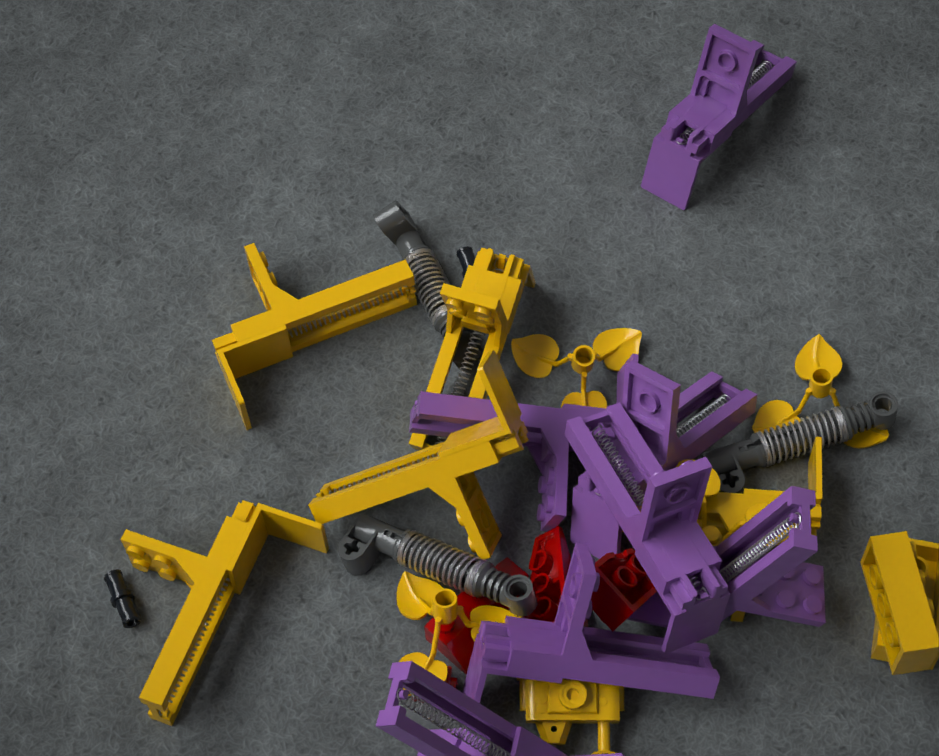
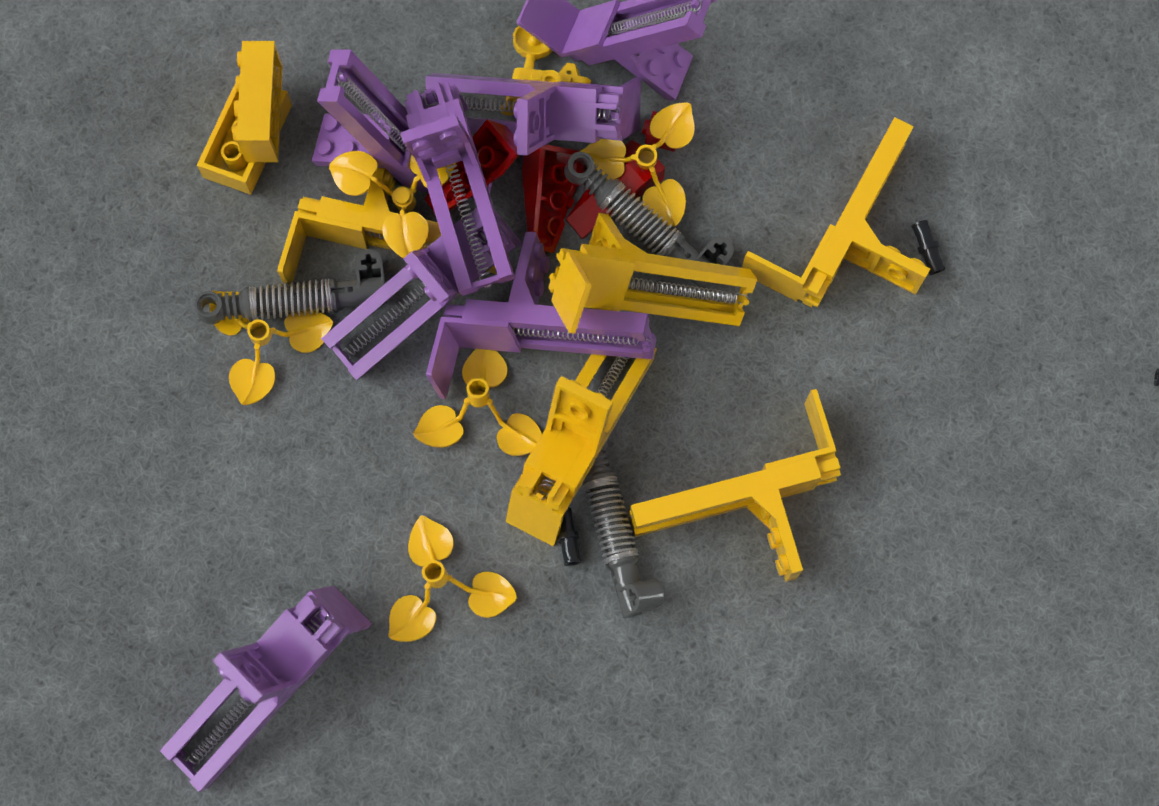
camera: 175 degrees left, 15 degrees up
(602, 192) = (430, 542): none -> yellow plant

